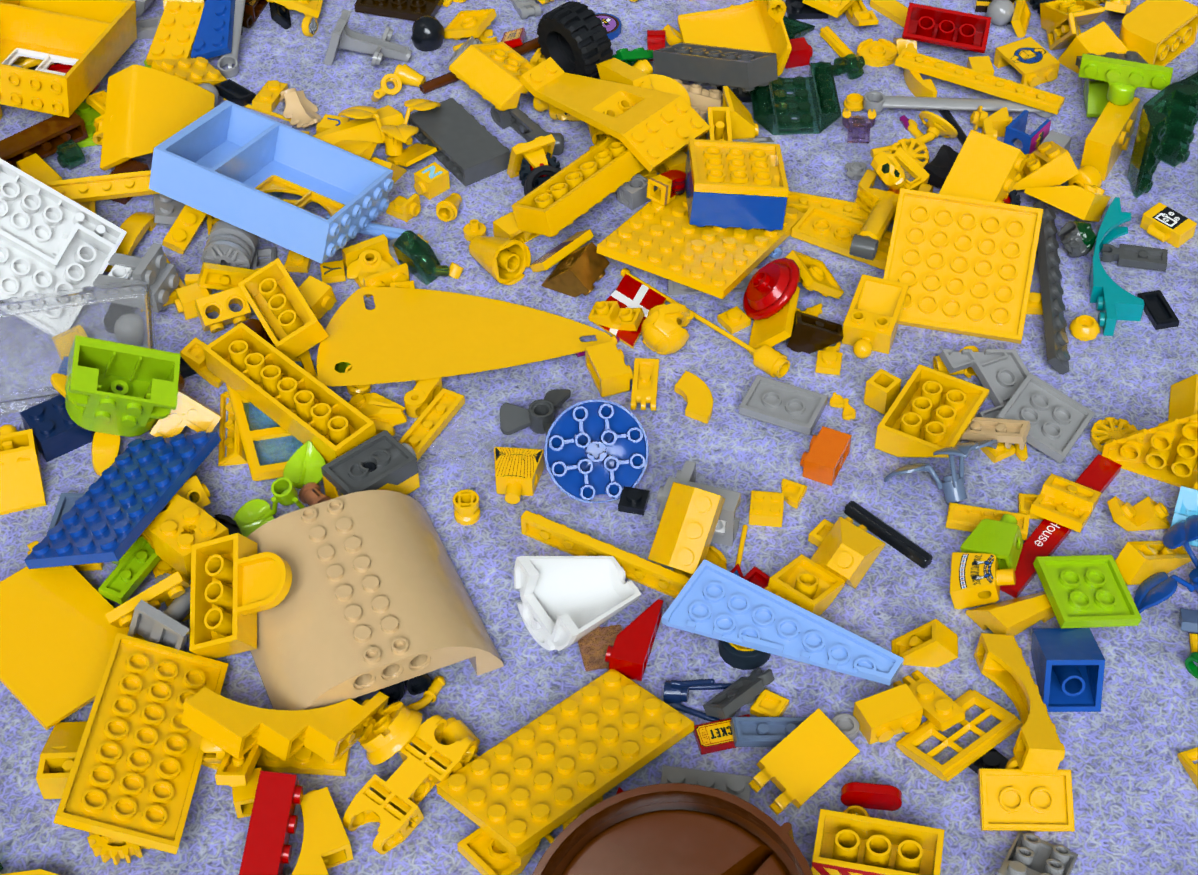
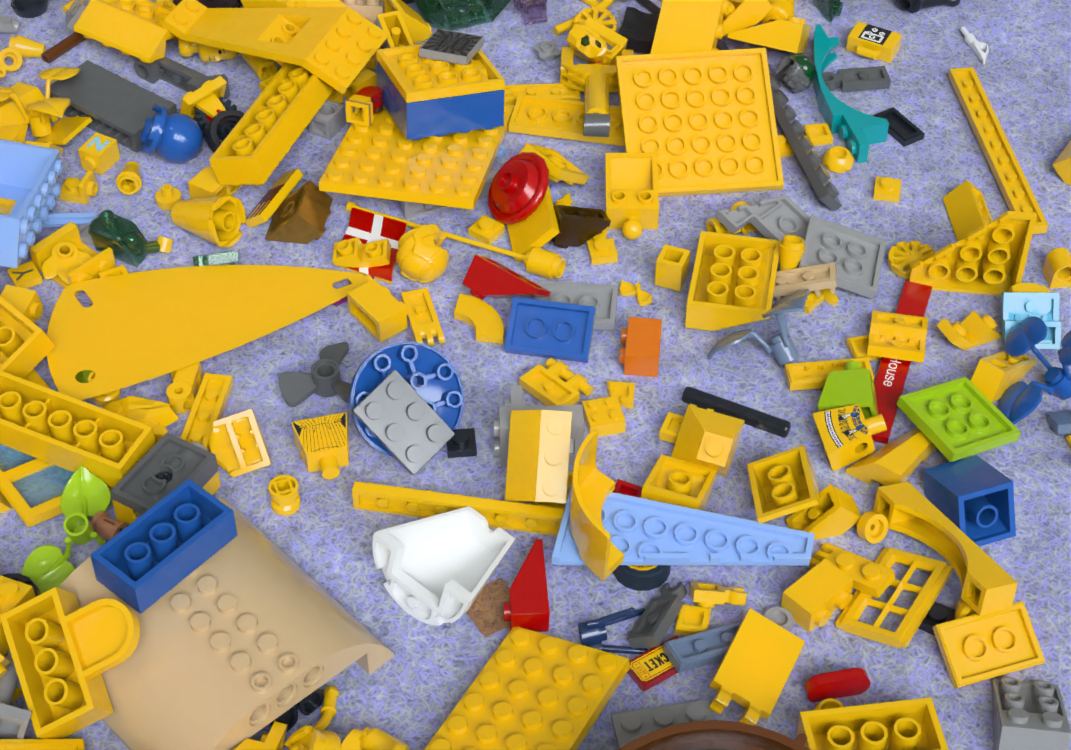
camera: 20 degrees left, 0 degrees up
(335, 521) = (164, 545): none -> blue brick
(446, 454) = (239, 443): none -> yellow slope
(497, 179) = (173, 136): none -> blue tile
(501, 294) = (220, 258): none -> clear green plate
(585, 470) = (403, 422): none -> plate
(707, 572) = (588, 496): none -> yellow panel
(719, 365) = (494, 280): none -> red slope
(730, 474) = (550, 388): none -> yellow plate
(749, 421) = (550, 329): none -> blue plate
(755, 149) = (451, 46): none -> tile
(794, 687) = (709, 594): none -> yellow plate
(894, 607) = (783, 484): none -> yellow slope
(965, 667) = (872, 527): none -> yellow tile
(993, 401) = (790, 252): none -> yellow cone
(1076, 300) = (818, 133): none -> yellow tile
(1119, 365) = (887, 189): none -> yellow plate

